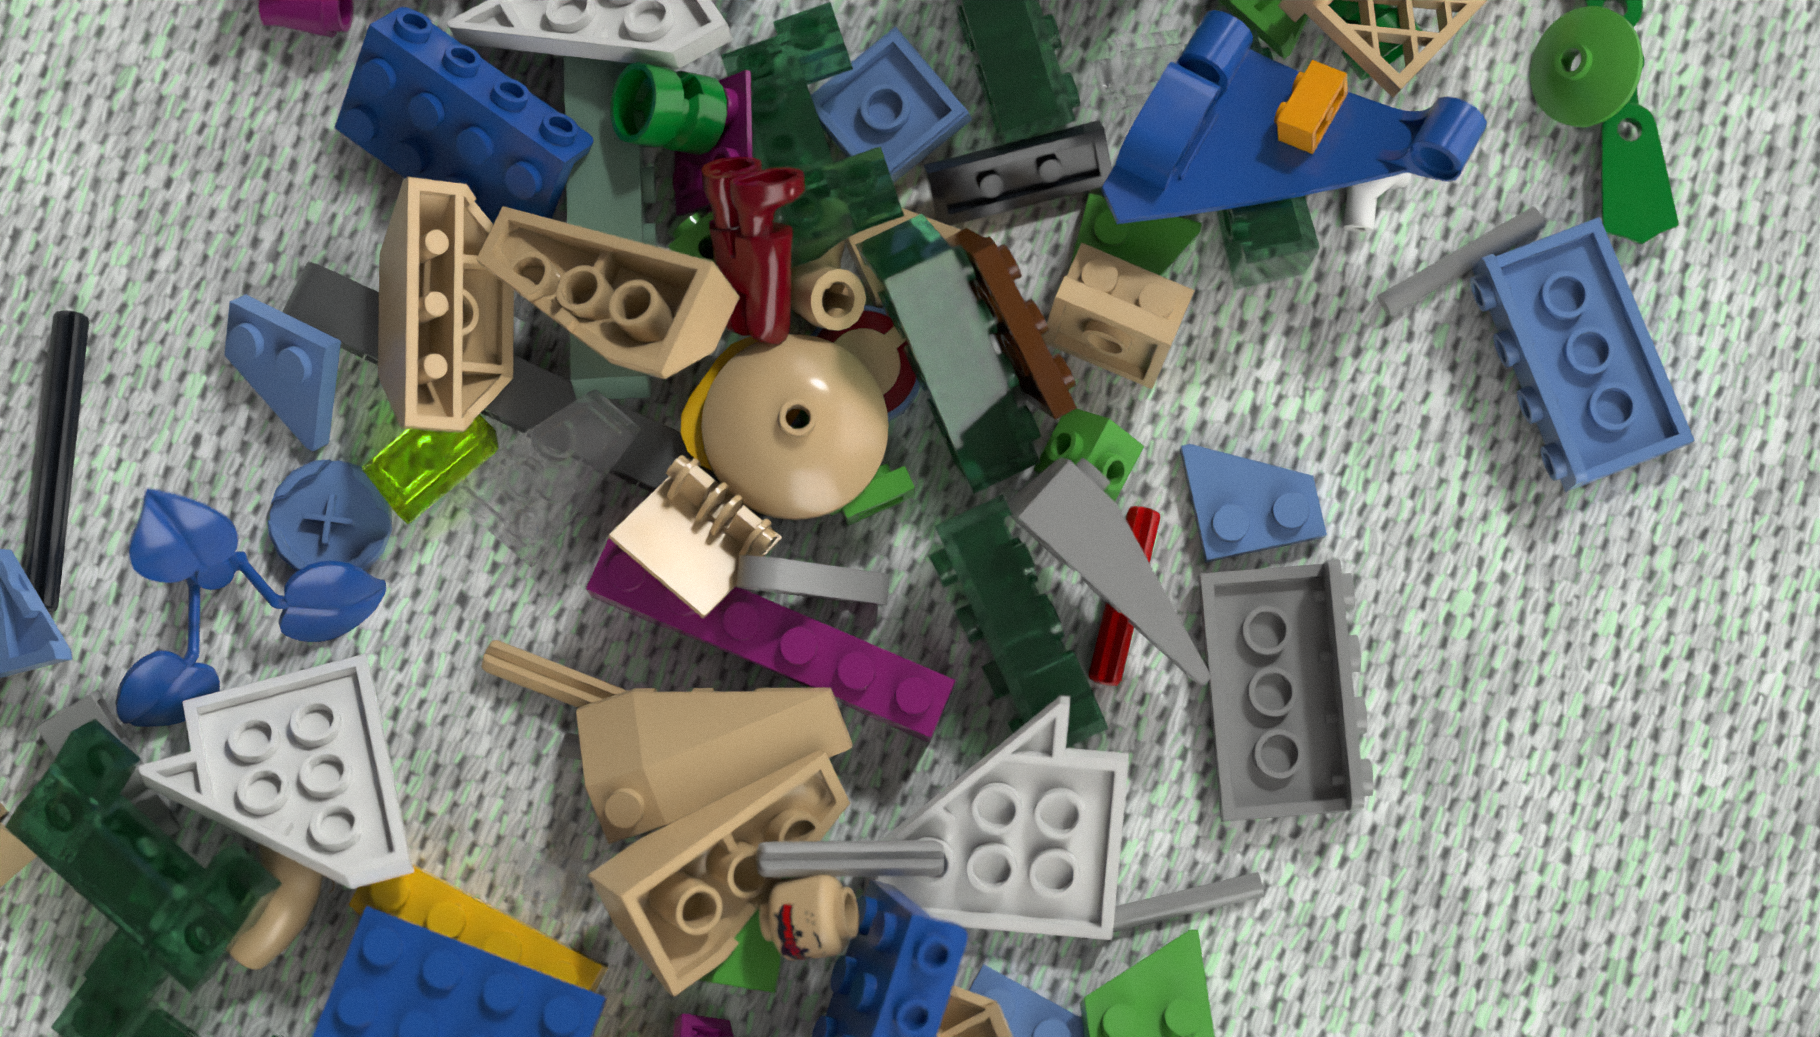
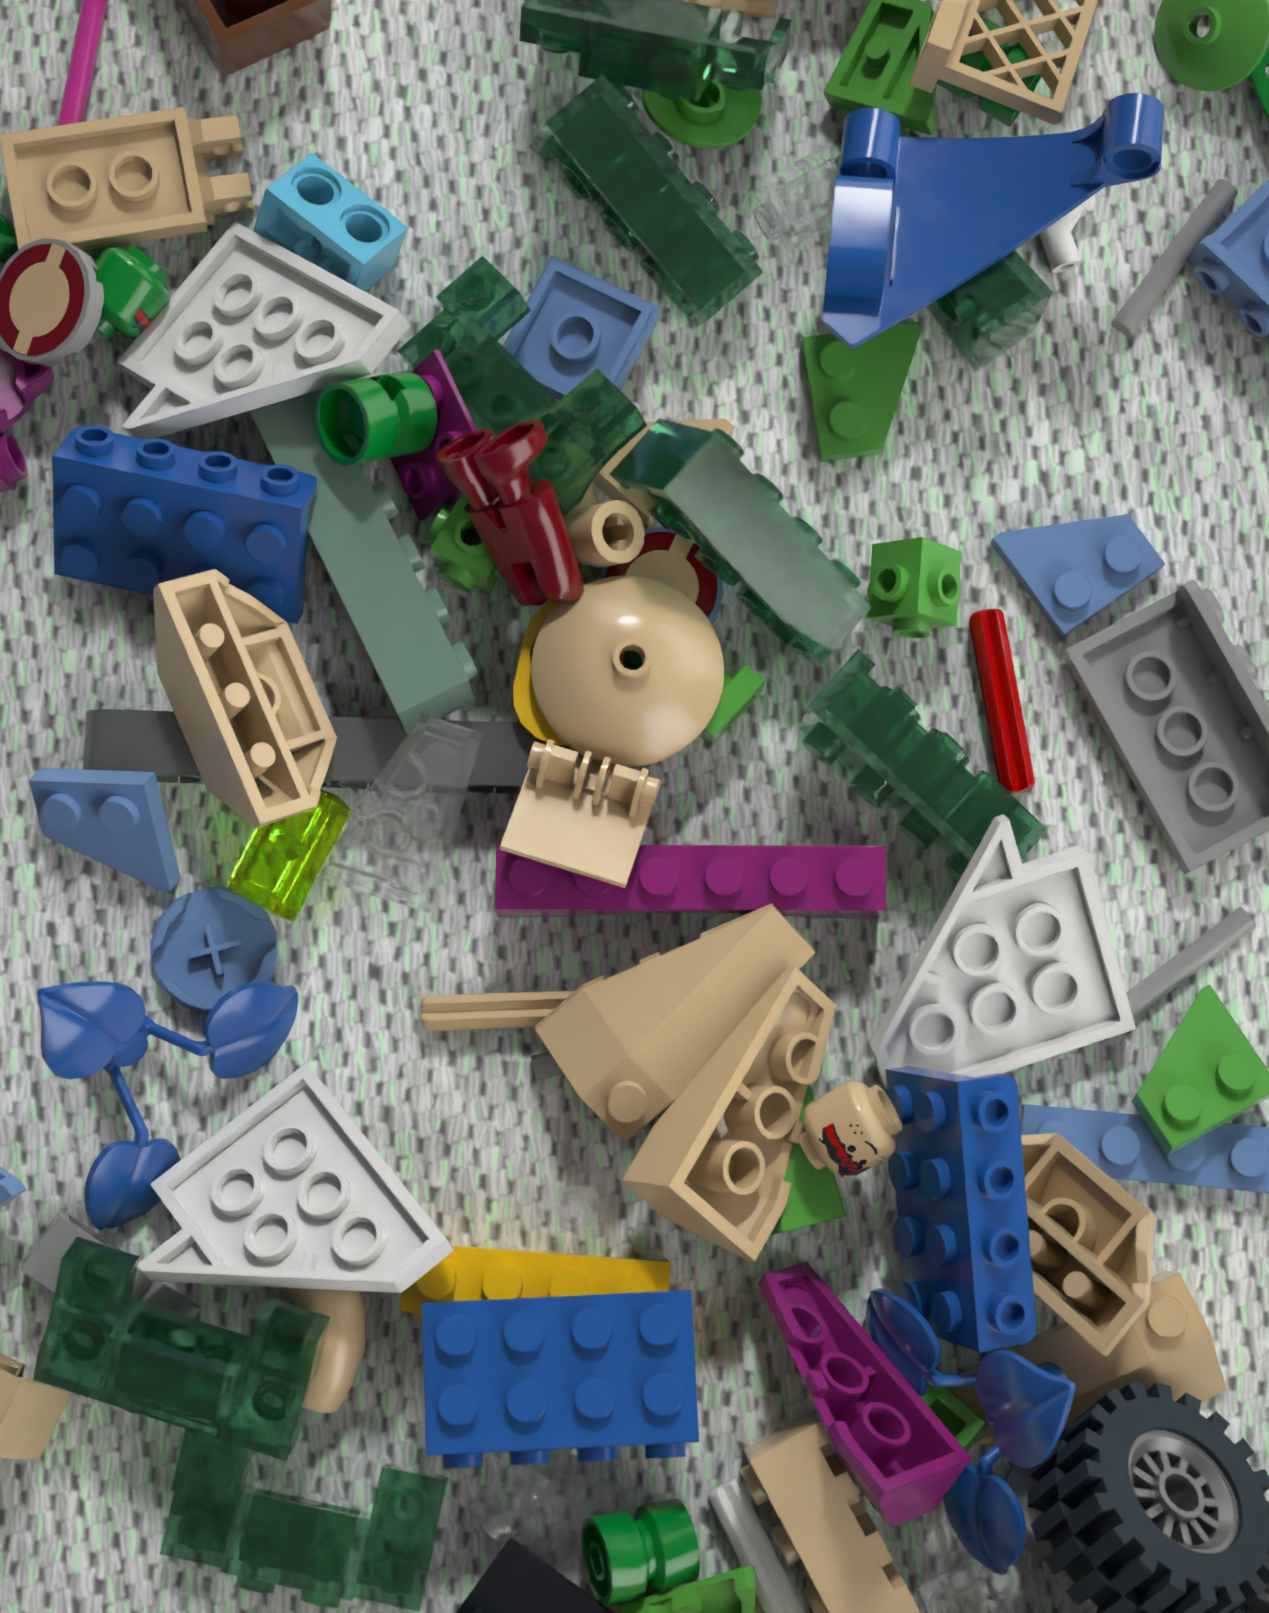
camera: 25 degrees left, 0 degrees up
(614, 294) = (406, 612): tan wedge -> none
(812, 580) = (708, 809): light grey beam -> none
(850, 858) = (863, 1057): light grey axle -> none
(1018, 173) = (729, 345): black plate -> none
(1020, 324) = (804, 480): reddish brown plate -> none
(1089, 534) = (945, 647): light grey wedge -> none
(1116, 315) = (883, 440): tan bracket -> none
(1311, 107) = (986, 163): light orange piece -> none

